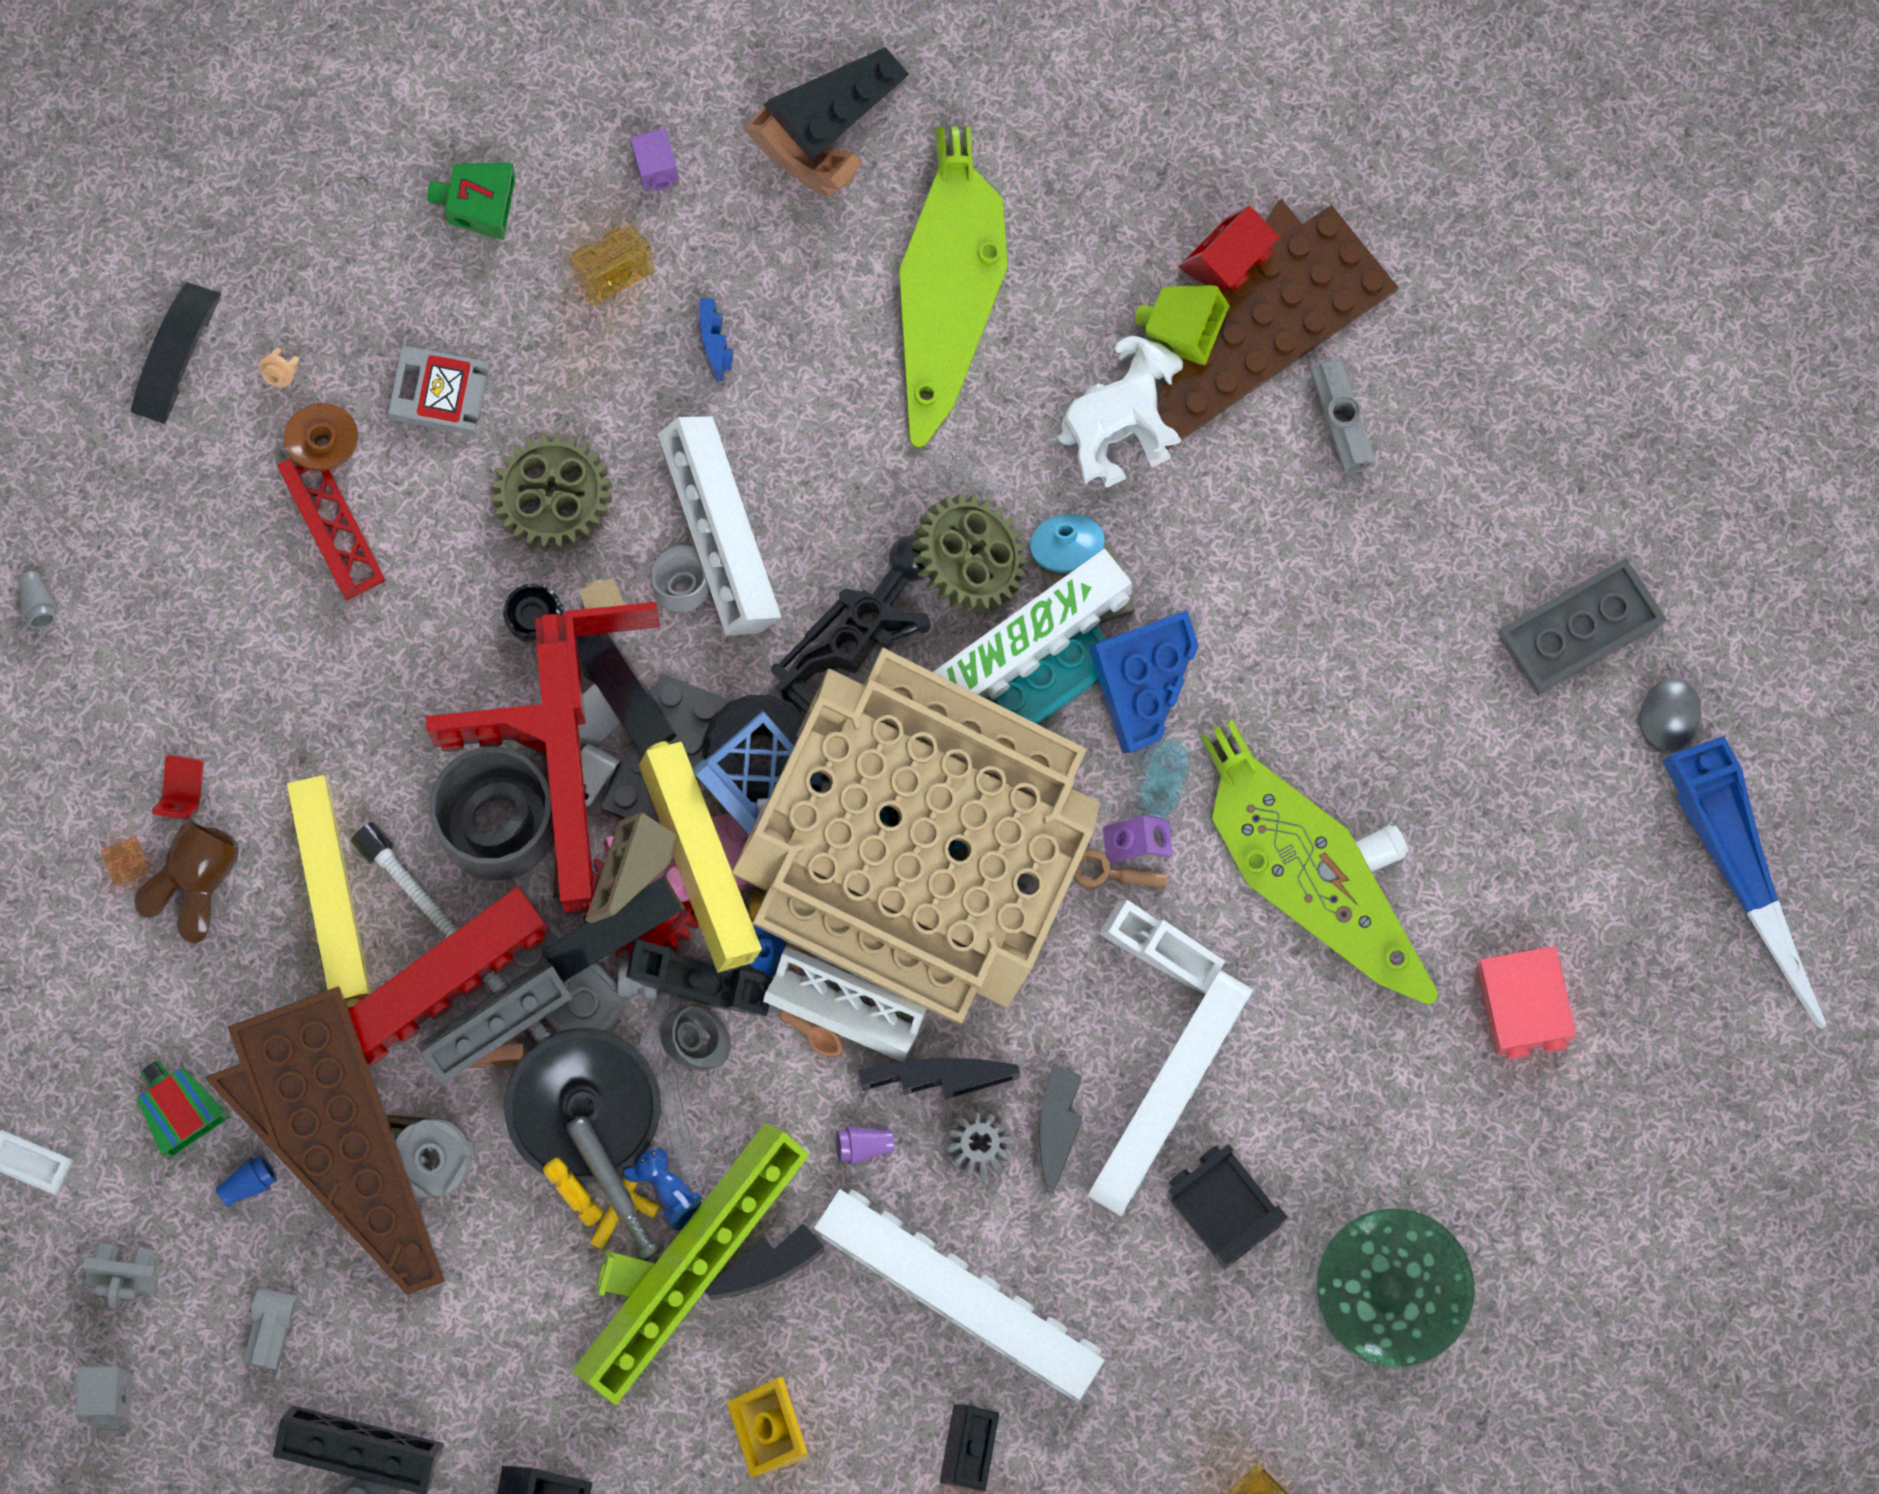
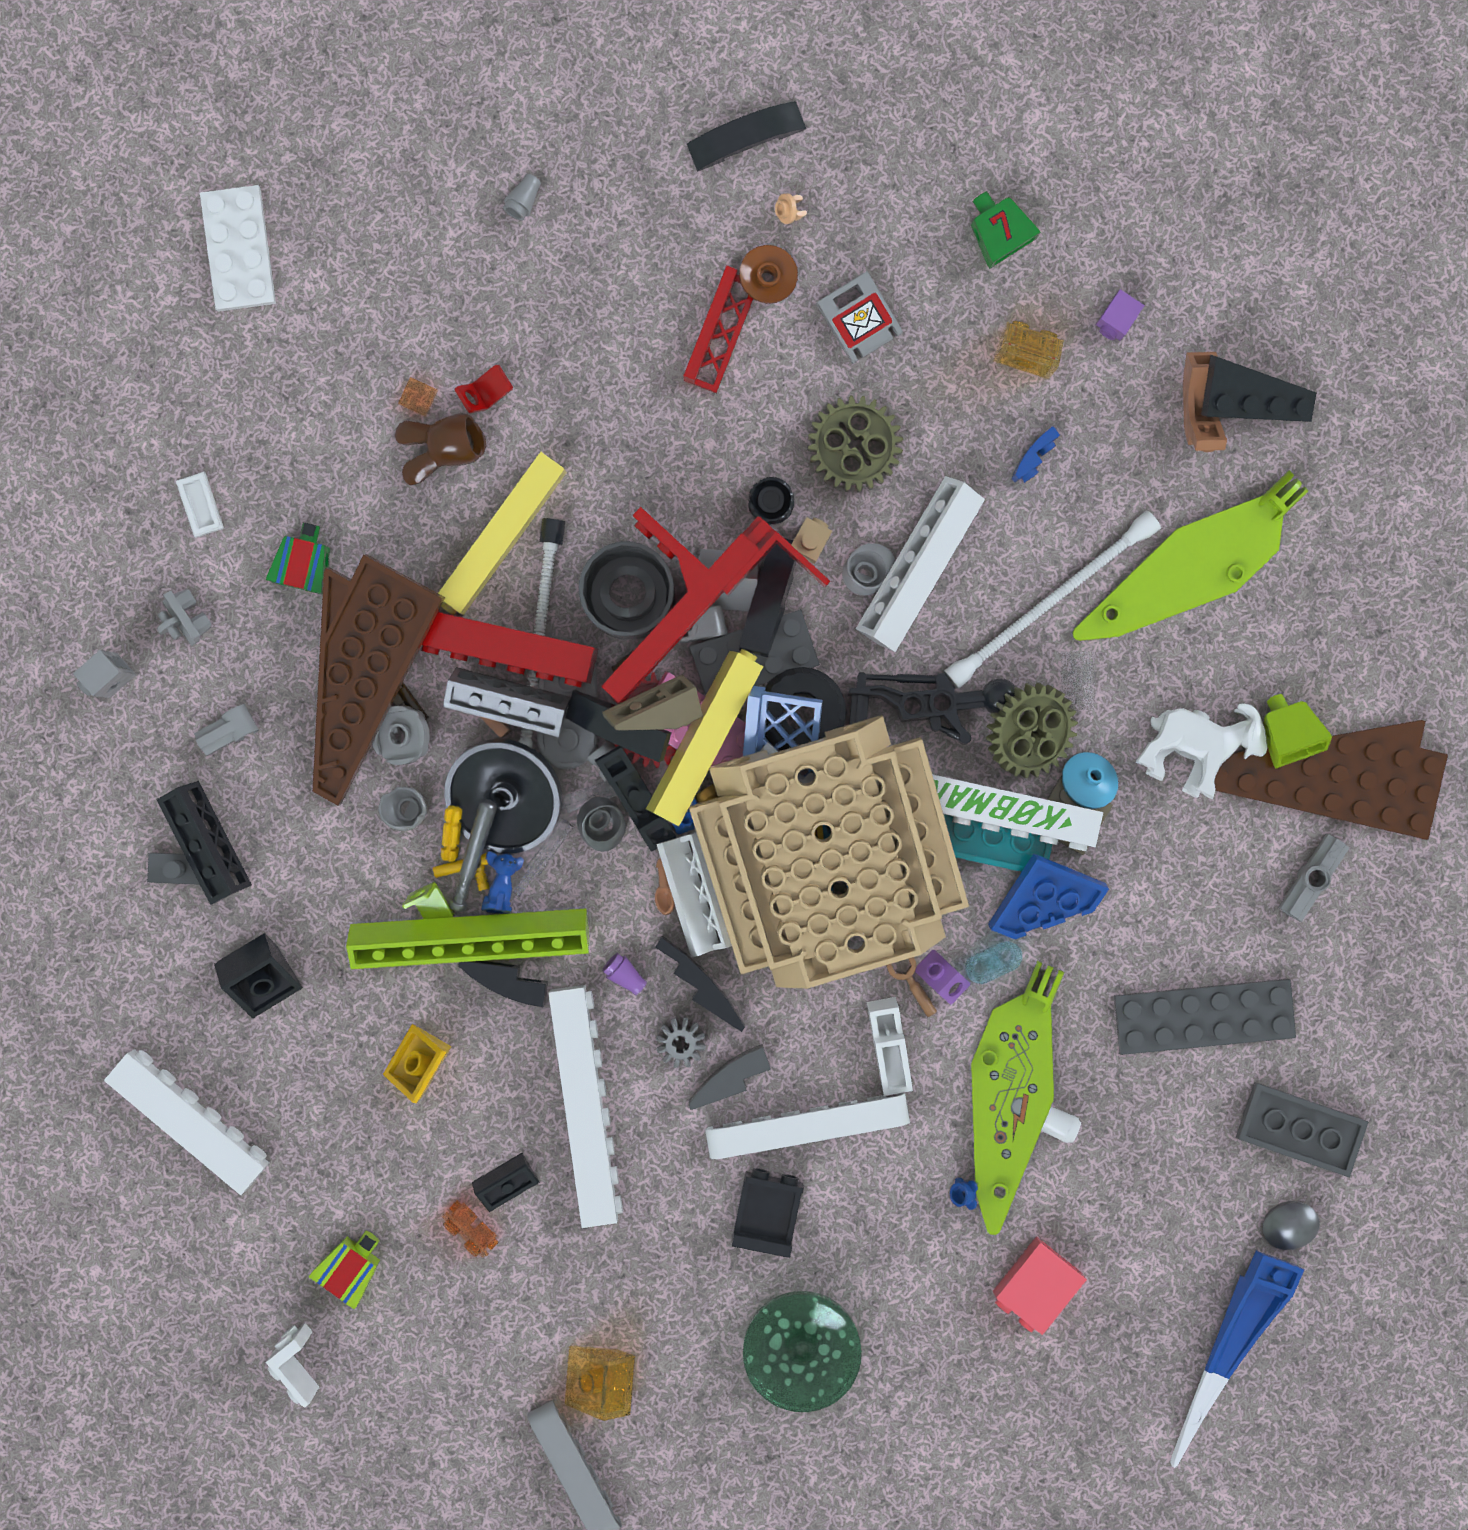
camera: 50 degrees right, 15 degrees up
(247, 1181) = (299, 641): blue cone -> none
(519, 1212) = (391, 805): none -> light grey hair
(870, 302) = (1140, 529): none -> white hose
(1231, 250) = (1363, 721): red slope -> none
(1364, 1002) = (964, 1193): none -> blue plate
(1392, 627) = (1204, 1016): none -> dark grey plate

